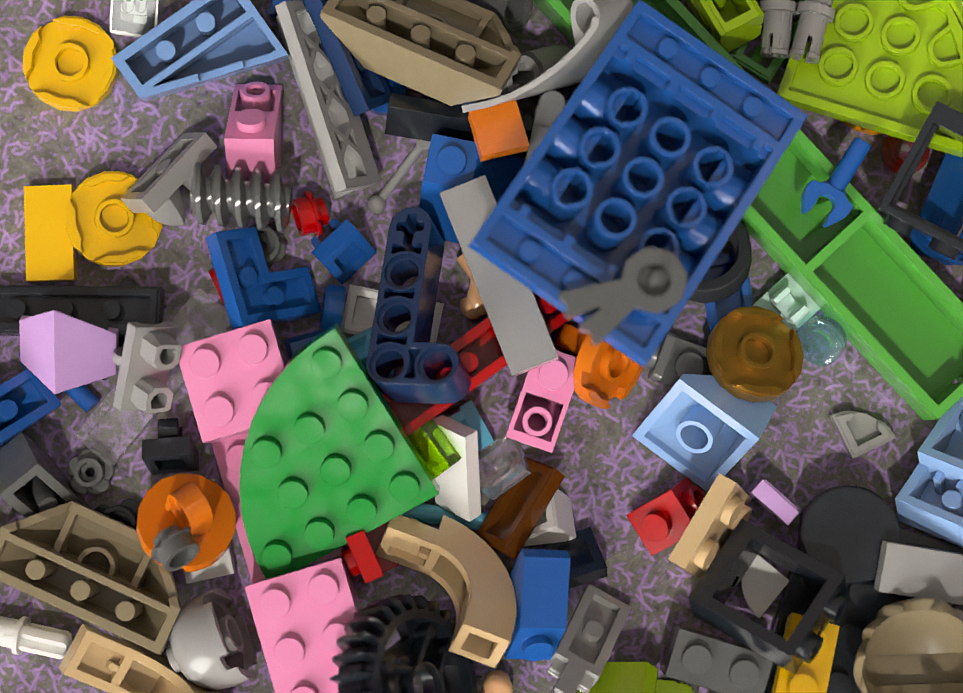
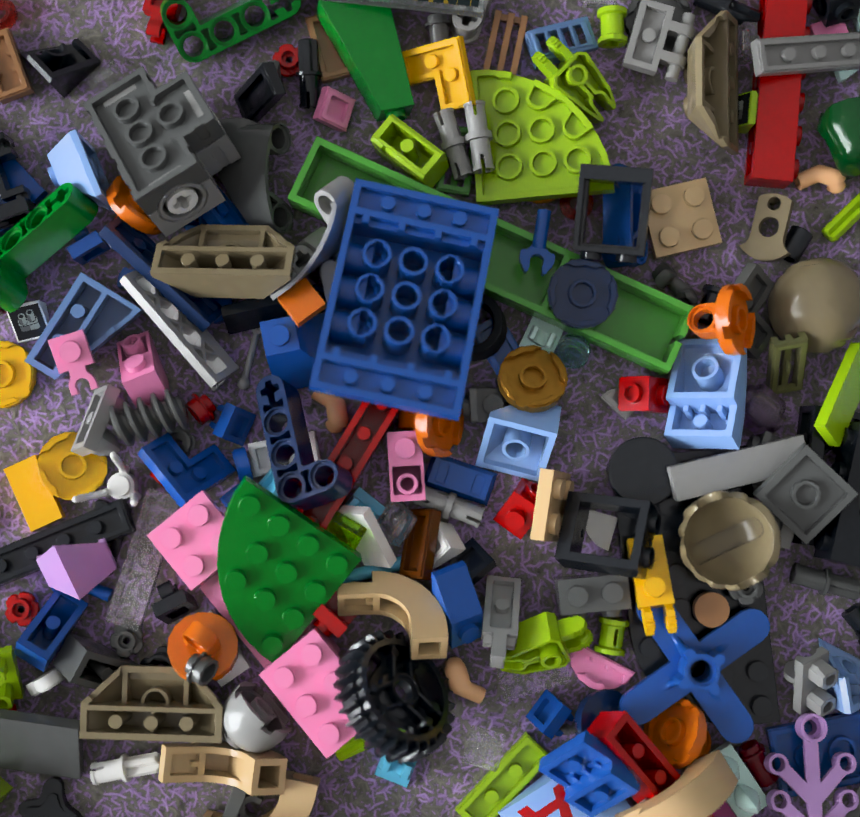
camera: 20 degrees left, 0 degrees up
(145, 367) = (132, 556): light grey hips -> none
(163, 269) = (119, 485): none -> white plant
(176, 76) = (73, 355): none -> bright pink plate
(506, 300) = (358, 417): light grey tile -> none
(581, 476) = (452, 506): none -> light grey pin
(605, 445) = (460, 478): none -> blue tile
(649, 283) = (438, 364): dark grey piece -> none
(772, 501) = (584, 470): lavender tile -> none
(866, 271) = (582, 294): none -> dark blue tile
(890, 434) = (643, 394): none -> red bracket

